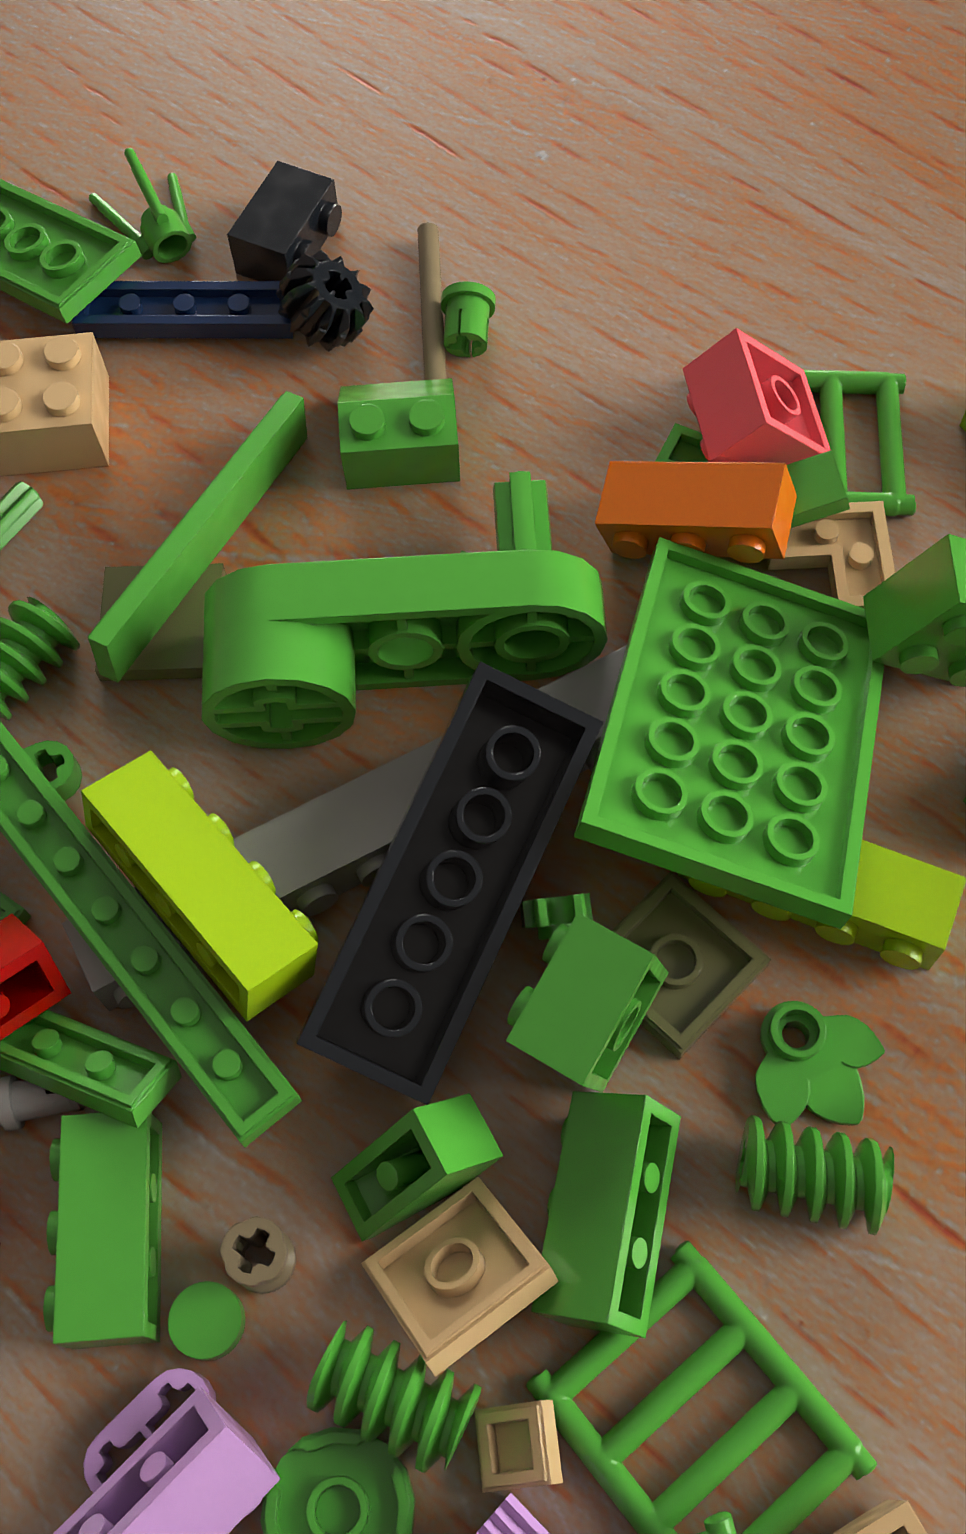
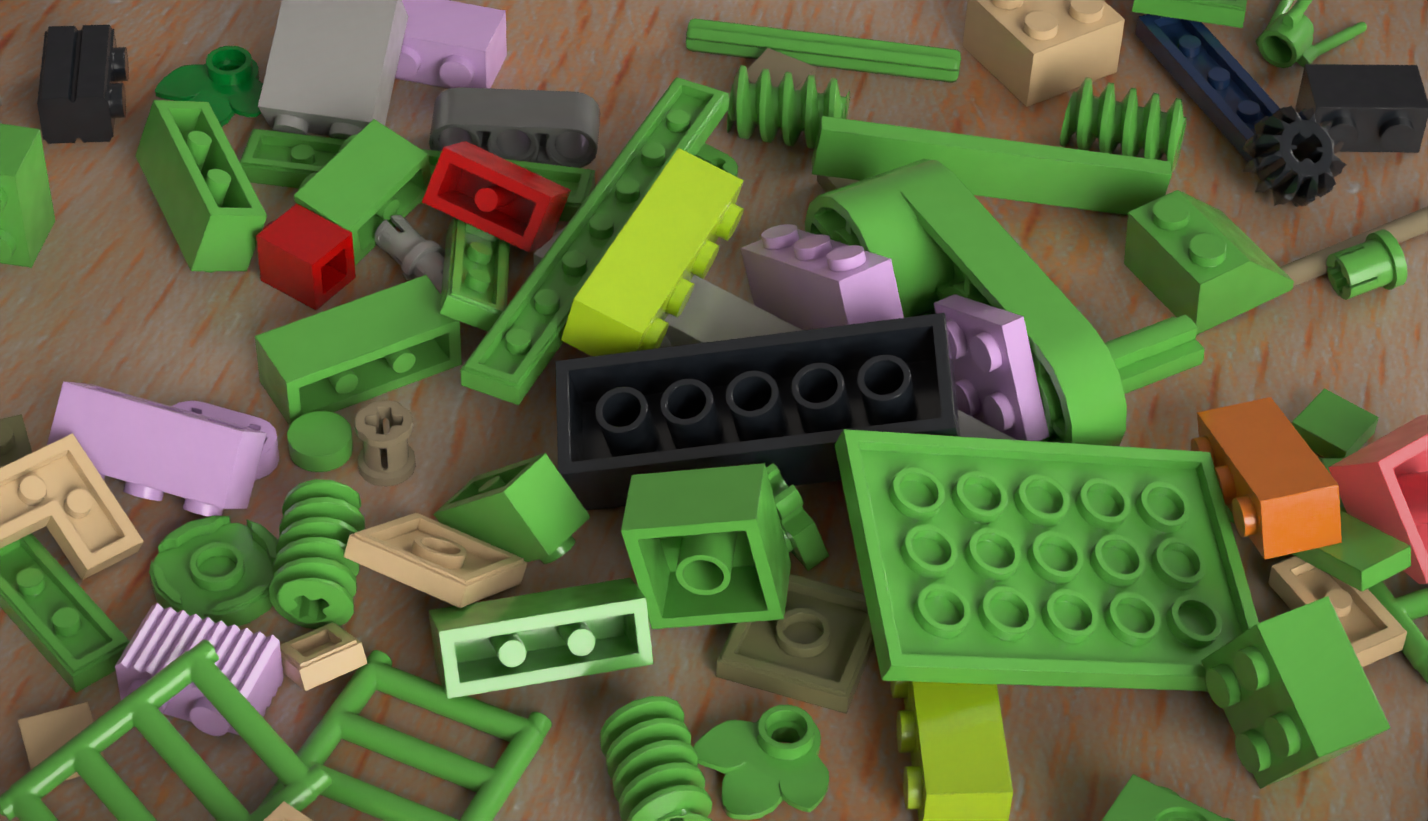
camera: 60 degrees right, 20 degrees down
(199, 398) = (1124, 123): none -> bright green piece
(300, 745) = (819, 280): none -> lavender brick
(495, 635) = (994, 368): none -> lavender plate
(623, 435) = (1334, 425): none -> bright green tile

